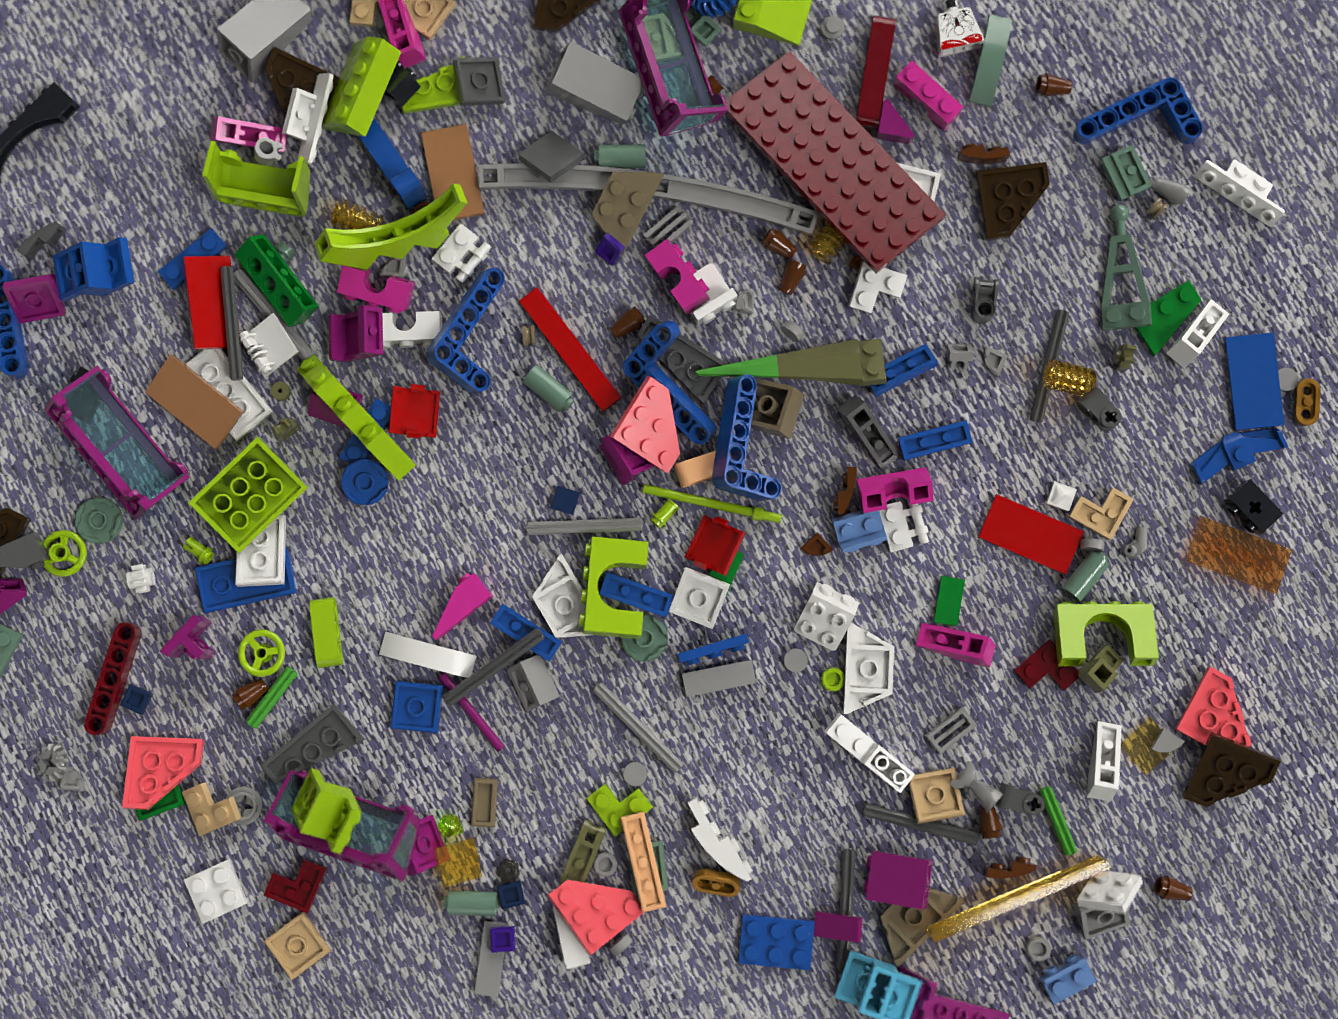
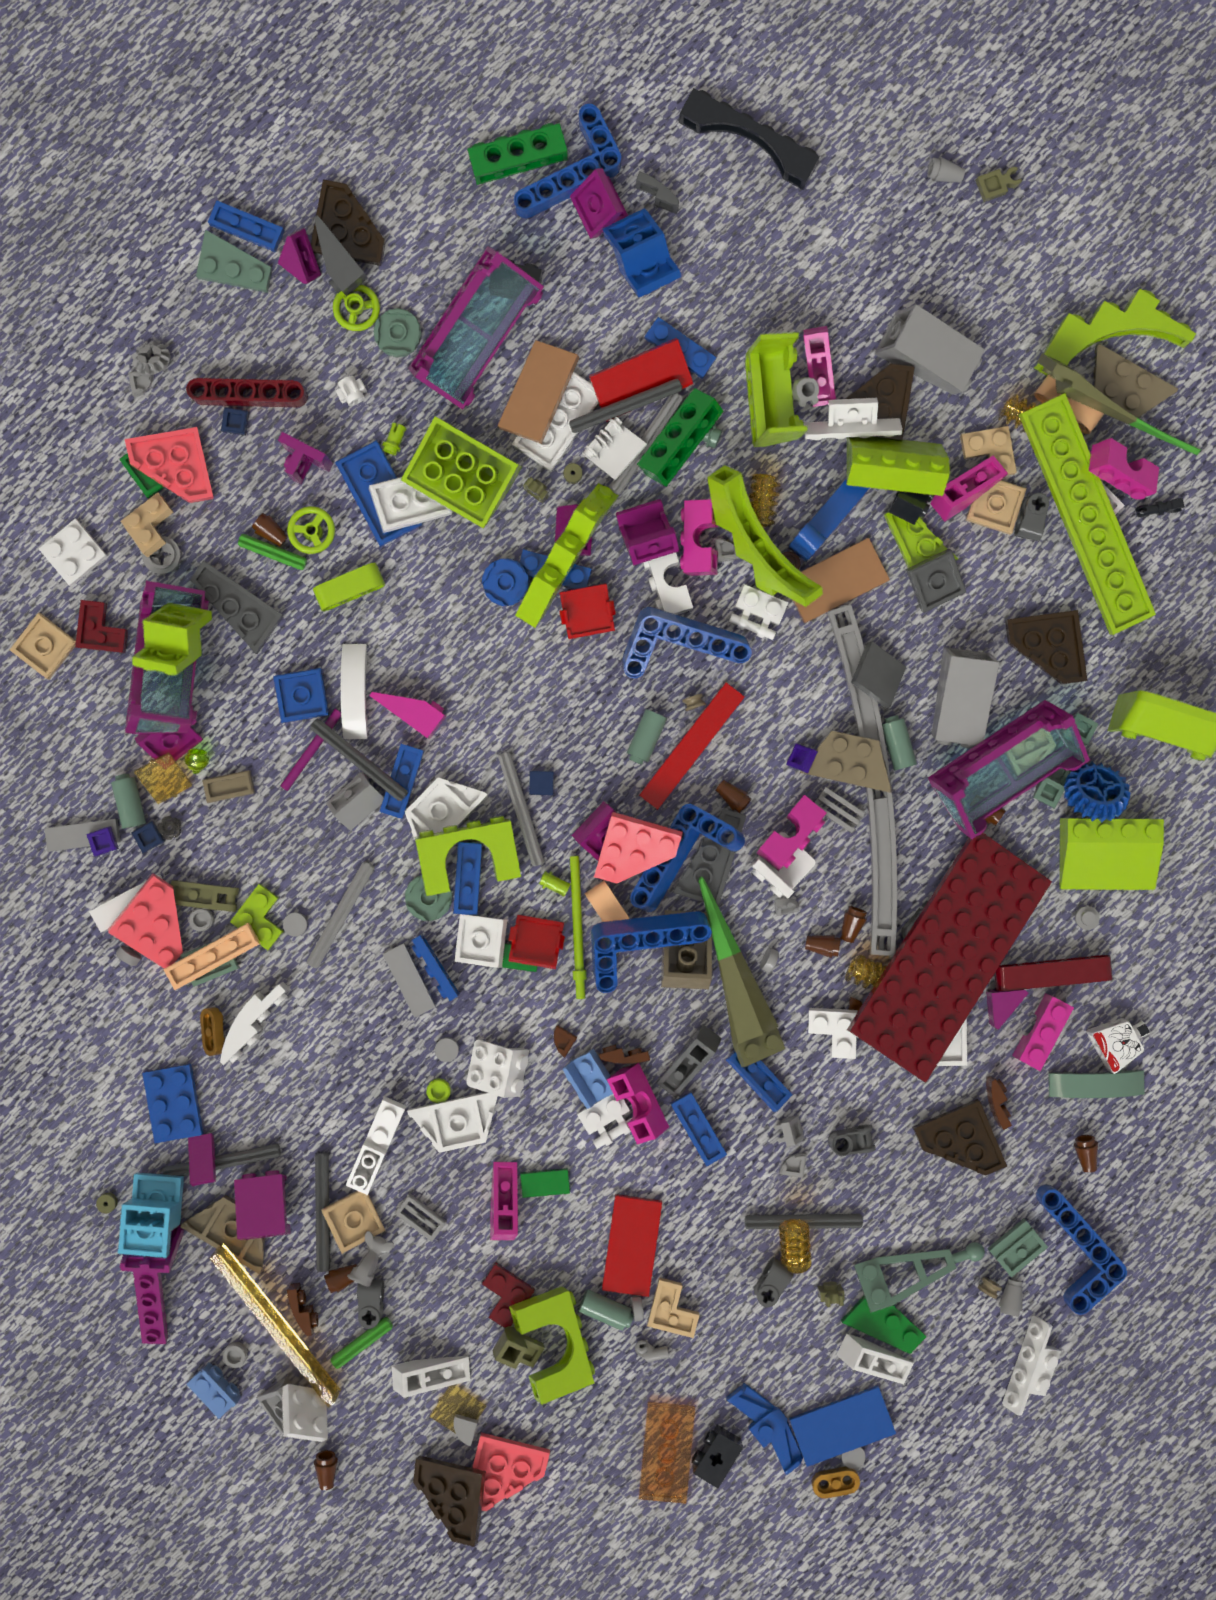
camera: 70 degrees right, 5 degrees up
(1061, 496) = (677, 1265): white tile -> none

